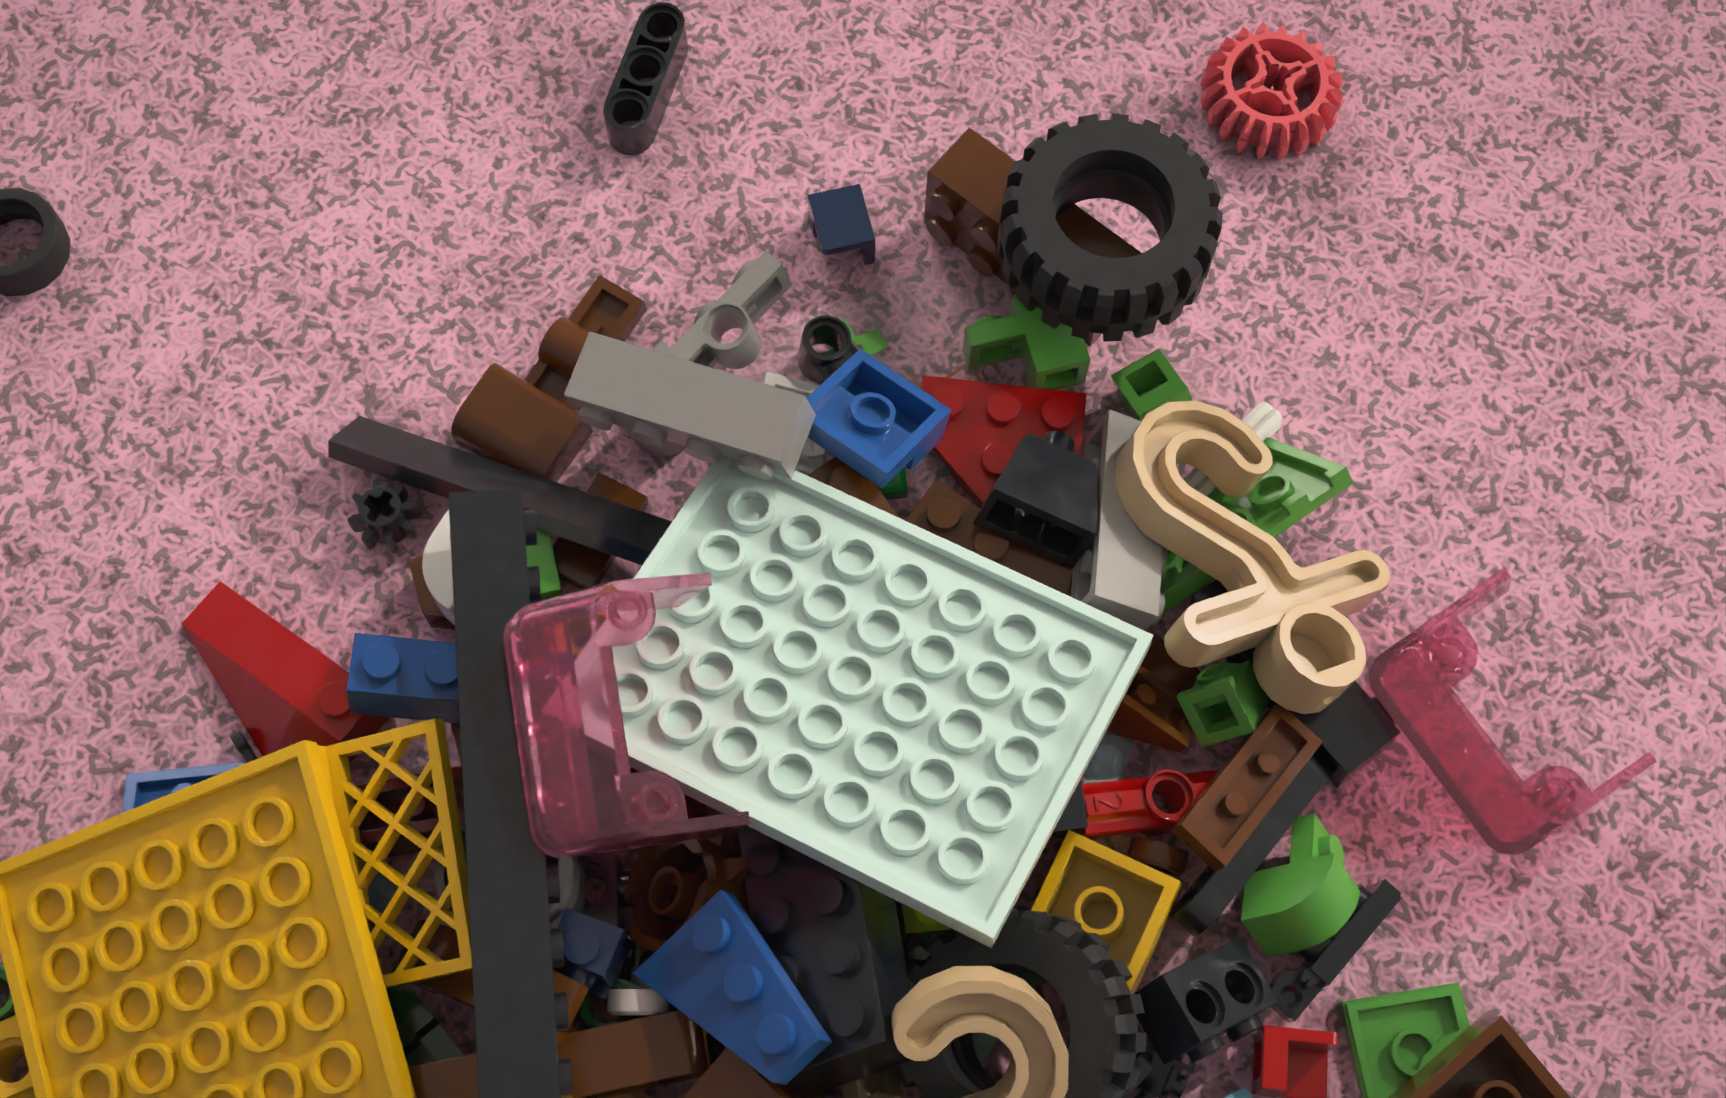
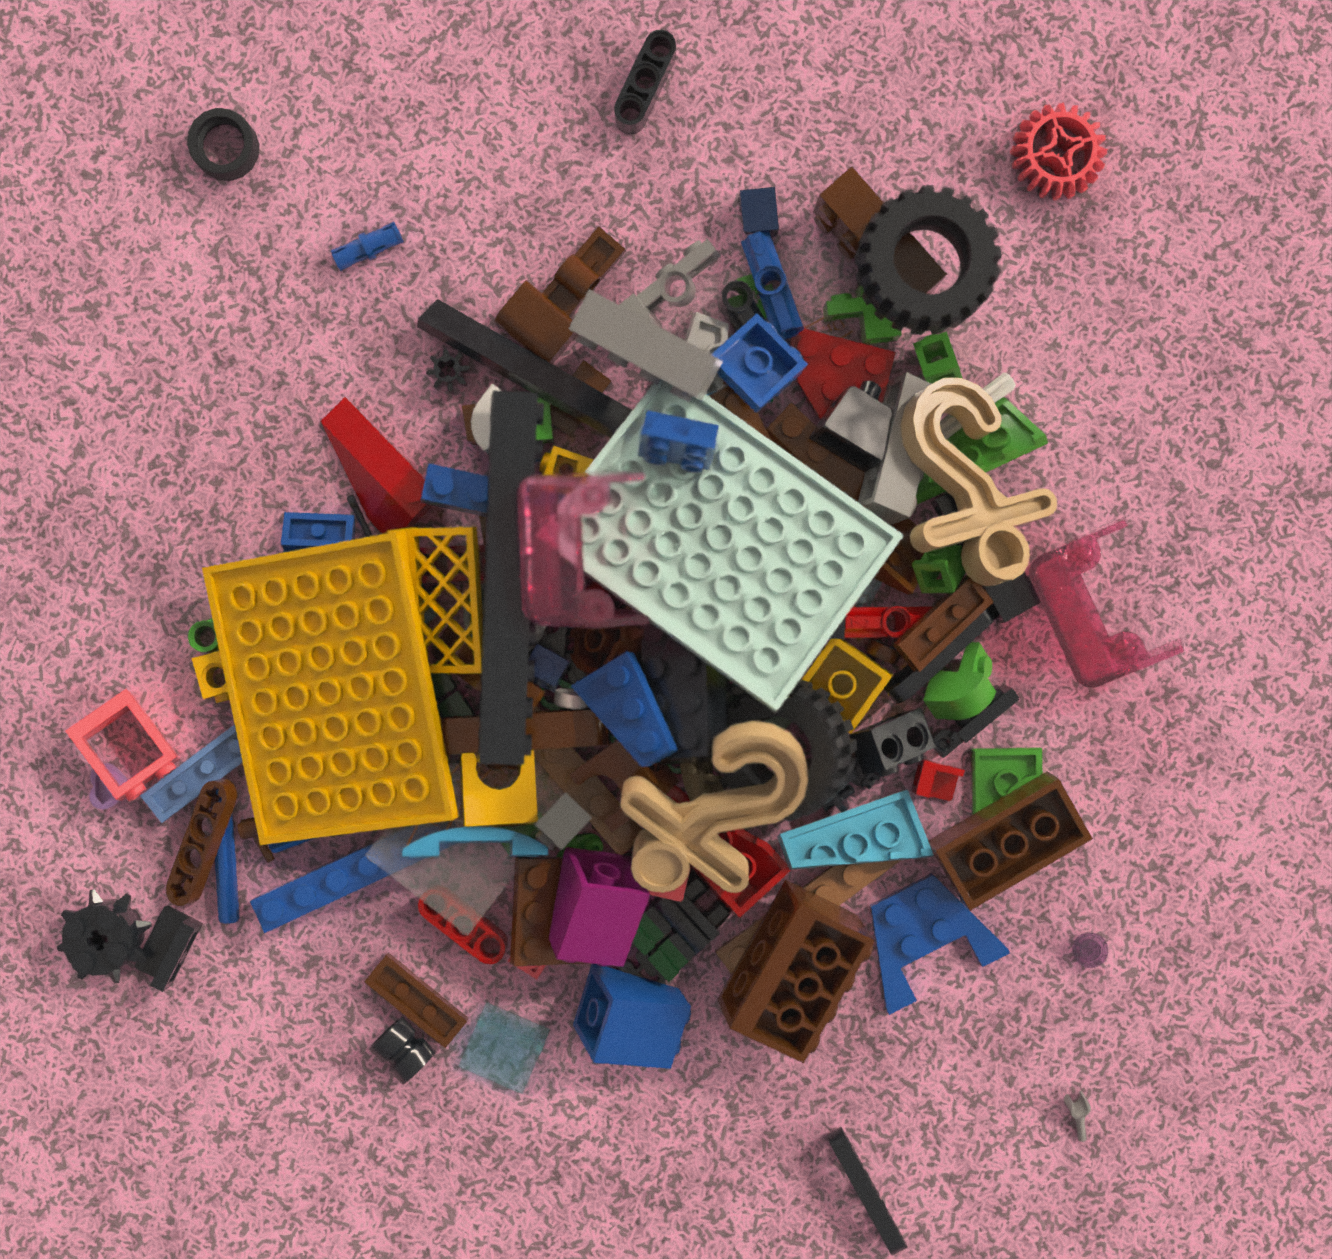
camera: 10 degrees right, 20 degrees up
(243, 355) = (367, 246): none -> blue pin
(758, 538) = (678, 441): none -> blue bracket
(868, 300) = (766, 267): none -> blue piece

